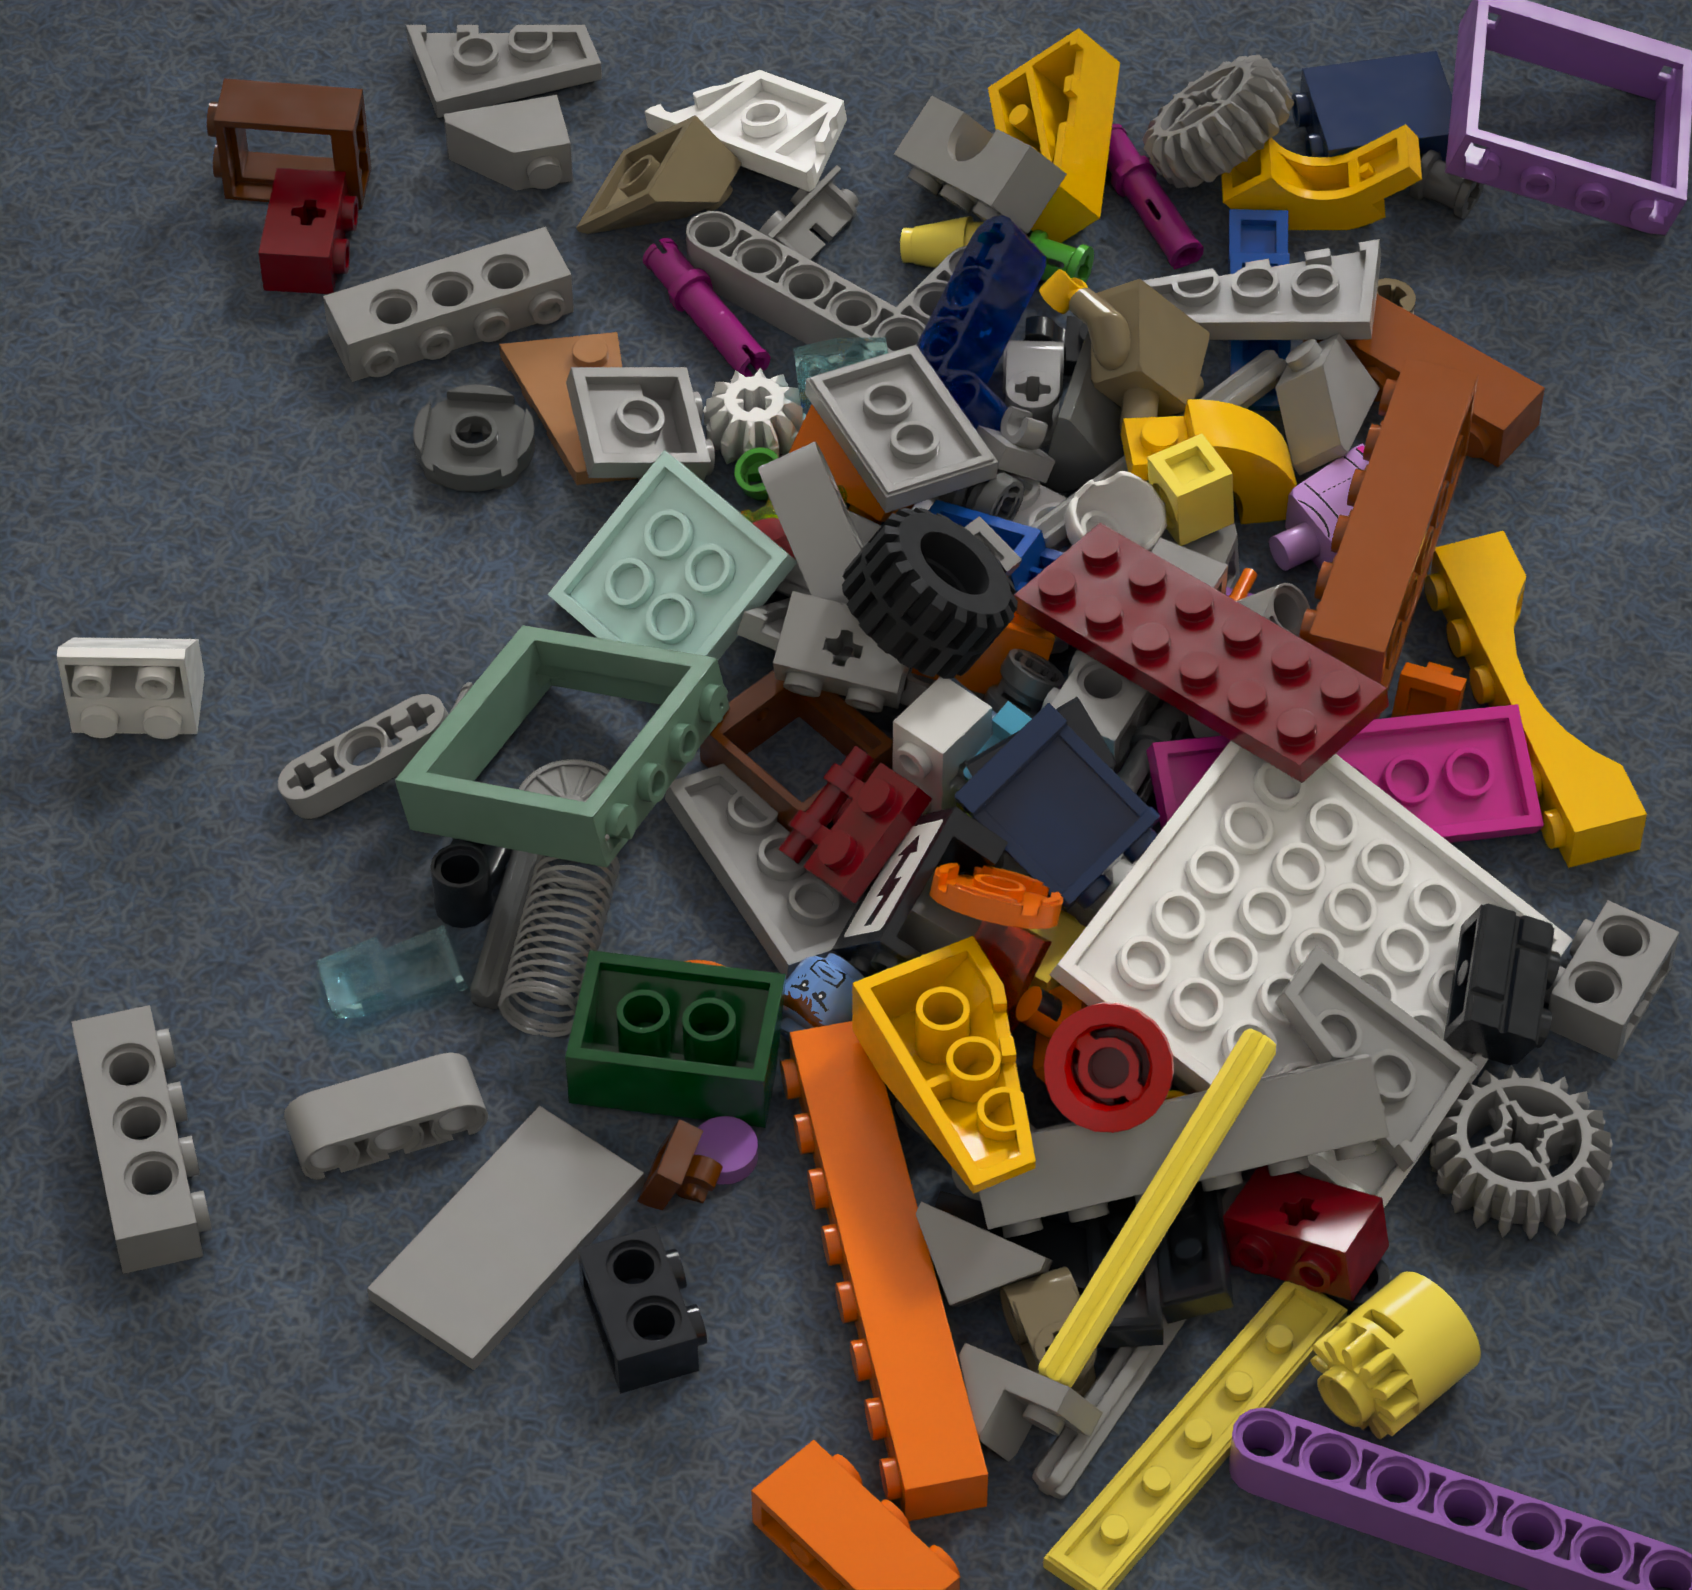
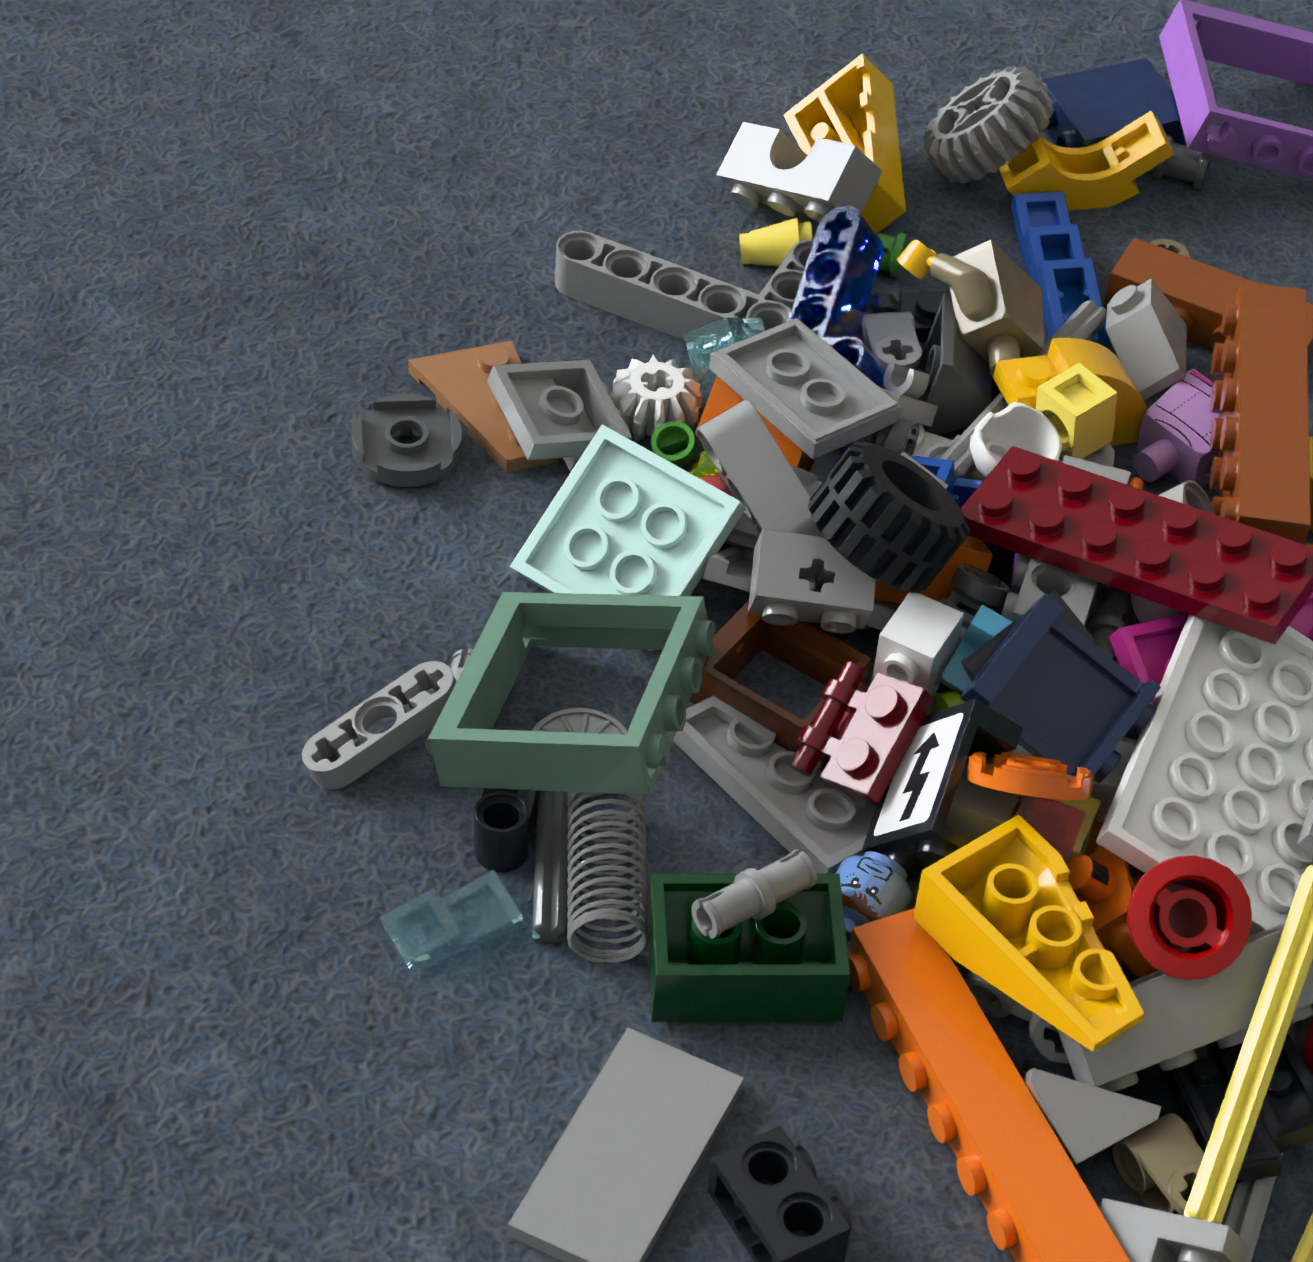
camera: 15 degrees left, 5 degrees down
(111, 1054) = (271, 1193): light grey brick -> none
(132, 685) = (145, 686): white slope -> none
(286, 109) = (183, 241): reddish brown window -> none
(306, 231) = (210, 281): dark red brick -> none
(384, 1113) = (482, 1052): light grey beam -> none
(449, 304) = (355, 330): light grey brick -> none
(493, 68) = (338, 139): light grey wing -> none
(513, 143) = (378, 194): light grey slope -> none
(664, 179) = (519, 212): dark tan slope -> none
(679, 1170) = (776, 1069): reddish brown tile -> none
(683, 985) = (754, 893): none -> light grey pin
(692, 292) = (568, 302): magenta pin -> none
(731, 1145) = (810, 1047): medium lavender tile -> none
(767, 125) = (590, 162): white wing -> none
(823, 209) = (659, 224): light grey hinge -> none
(1136, 179) = (923, 180): magenta pin -> none
(1283, 301) = (1103, 256): light grey wing -> none

